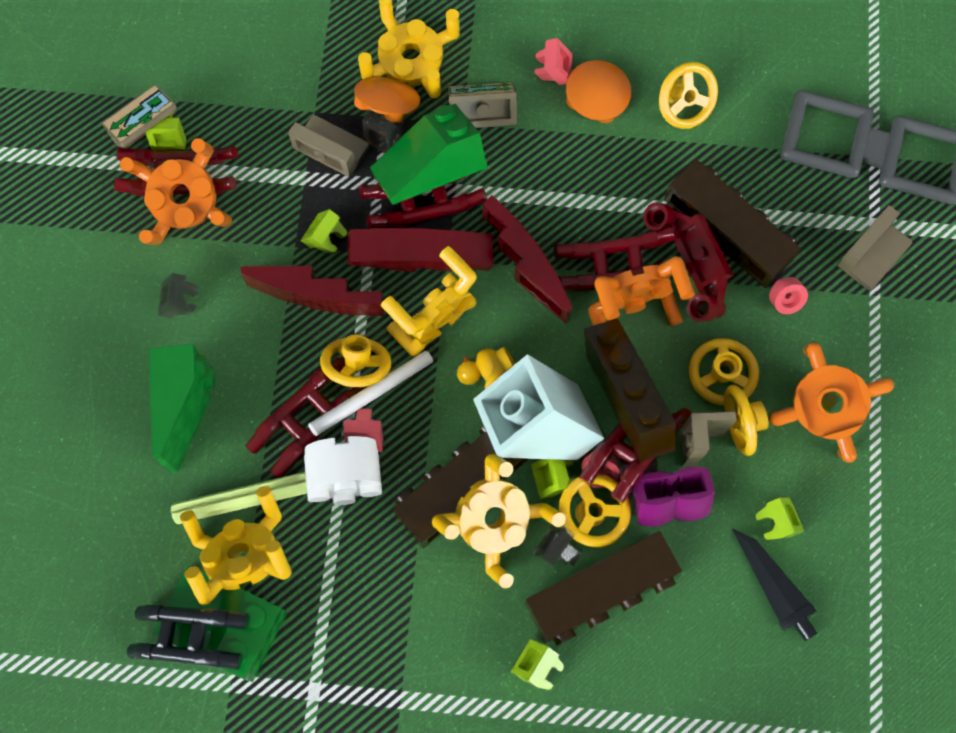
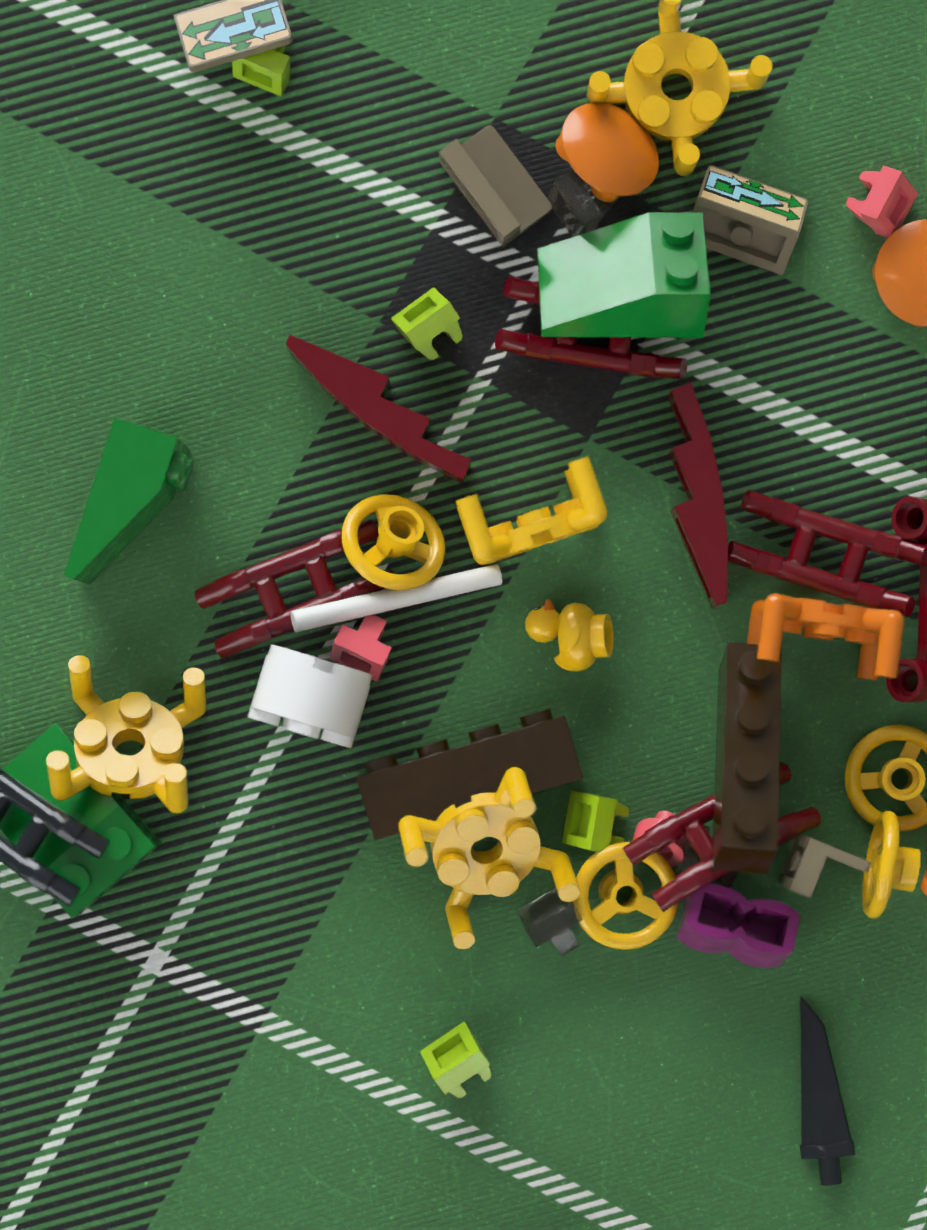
camera: 25 degrees right, 15 degrees up
(156, 158) = (287, 120): dark red piece -> none
(160, 191) = (216, 184): orange plate -> none
(172, 294) = (178, 328): clear smoke tile -> none
(239, 497) = (159, 662): yellowish green axle -> none
(417, 248) = (554, 413): dark red slope -> none
(537, 414) = (605, 740): light aqua slope -> none
(602, 587) = (589, 1001): dark brown brick -> none
(785, 519) = (874, 1018): lime tile -> none

